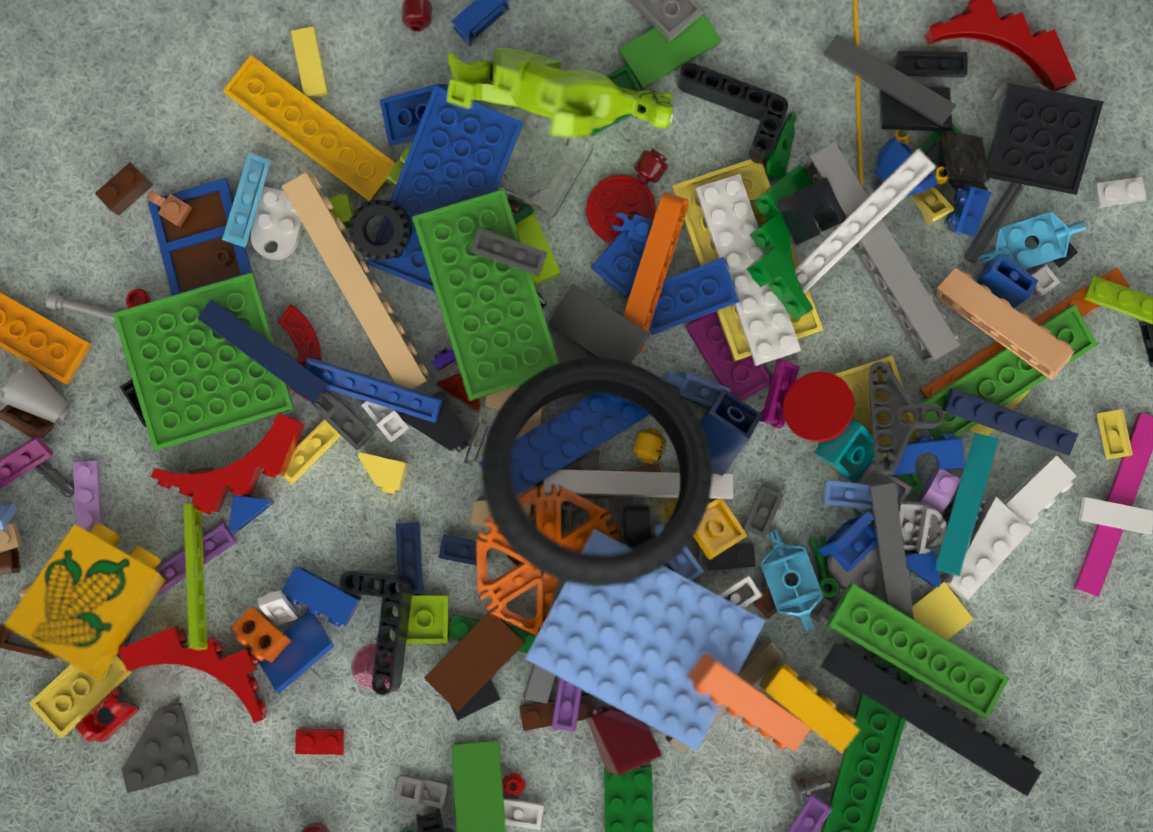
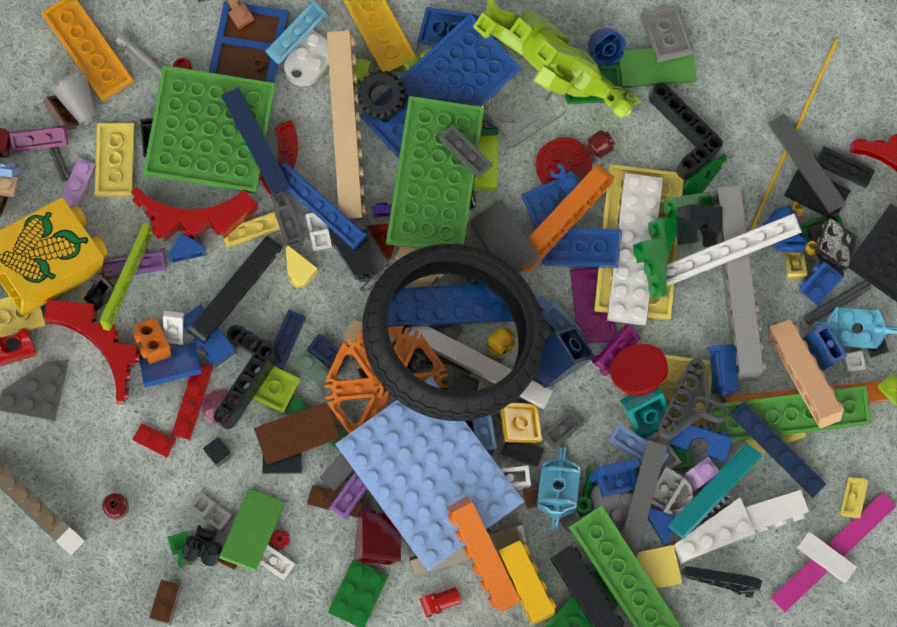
camera: 25 degrees right, 10 degrees down
(115, 443) = (114, 159): none -> light yellow tile
(174, 605) = (100, 292): none -> black slope
(325, 533) = (235, 290): none -> black beam
(341, 680) = (192, 403): none -> red plate
(396, 722) = (217, 452): none -> black piece
(456, 575) = (312, 369): none -> sand green plate
(604, 50) = (606, 46): none -> blue cylinder
(719, 771) = (437, 602): none -> red piece
(909, 360) = (723, 369): none -> blue window
(1026, 600) = (736, 583): none -> black beam

